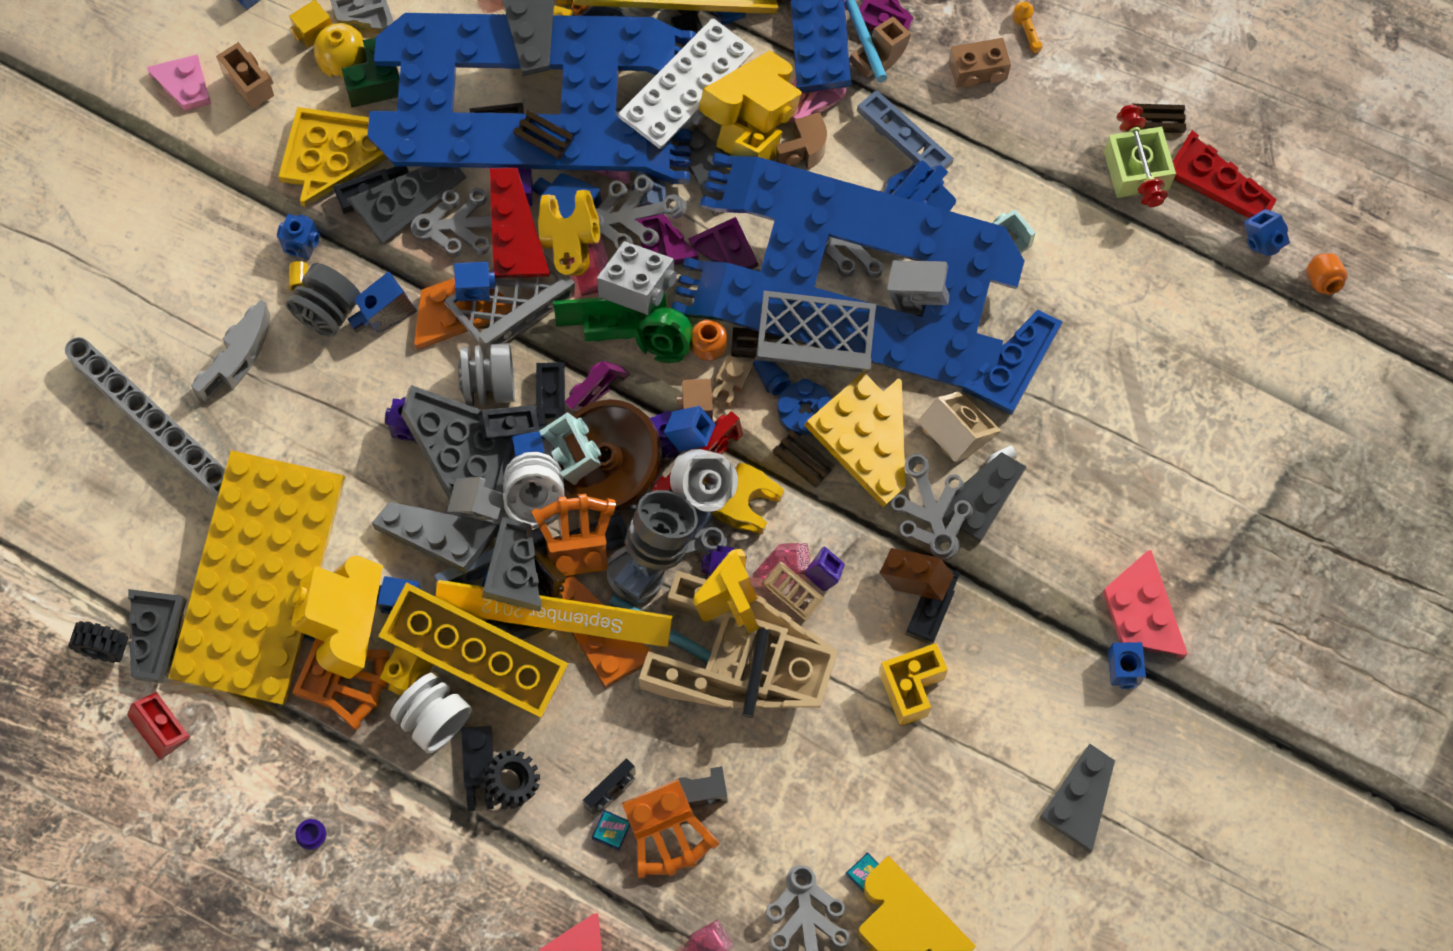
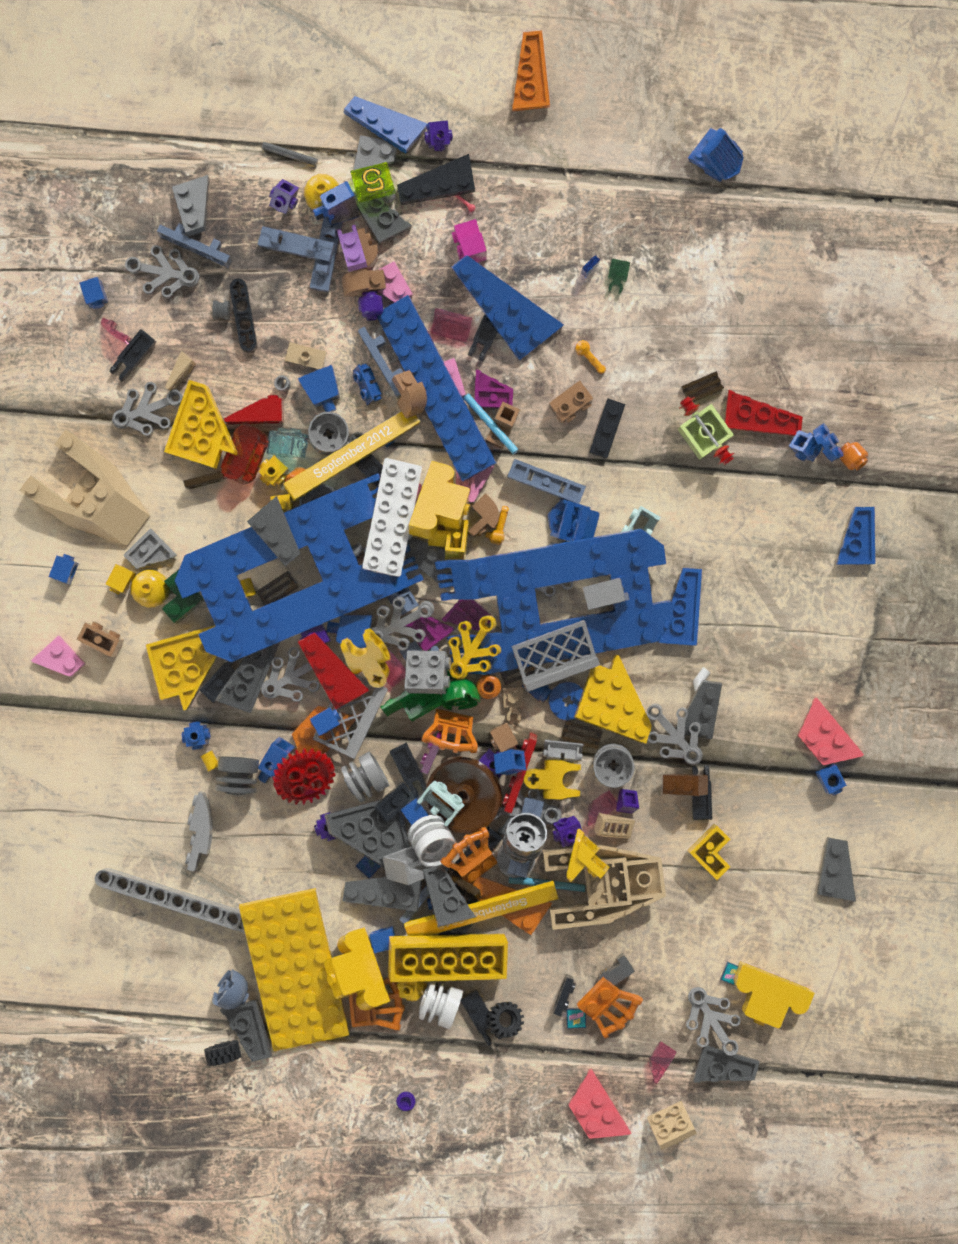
camera: 25 degrees left, 20 degrees up
(157, 725) = (282, 1079): red slope -> none
(158, 568) = (232, 990): none -> sand blue cylinder
(404, 362) = (303, 776): none -> red gear
(432, 496) = (367, 867): none -> tile
(462, 98) = (248, 587): none -> yellow hinge
(526, 124) = (304, 601): dark brown tile -> none
(628, 365) = (454, 724): none -> orange plate
(710, 274) = (471, 649): none -> yellow plant
(718, 486) = (534, 793): white brick -> none
(755, 673) = (620, 895): black bar -> none
(770, 462) = (556, 749): none -> light grey hinge
(823, 161) = (497, 536): none -> light orange piece
(826, 491) = (621, 773): none -> light grey wheel
(958, 425) = (667, 670): tan slope -> none
(1012, 114) = (607, 428): none -> black plate
(1294, 377) = (859, 540): none -> blue wing
(1299, 243) = (828, 442): none -> blue plate

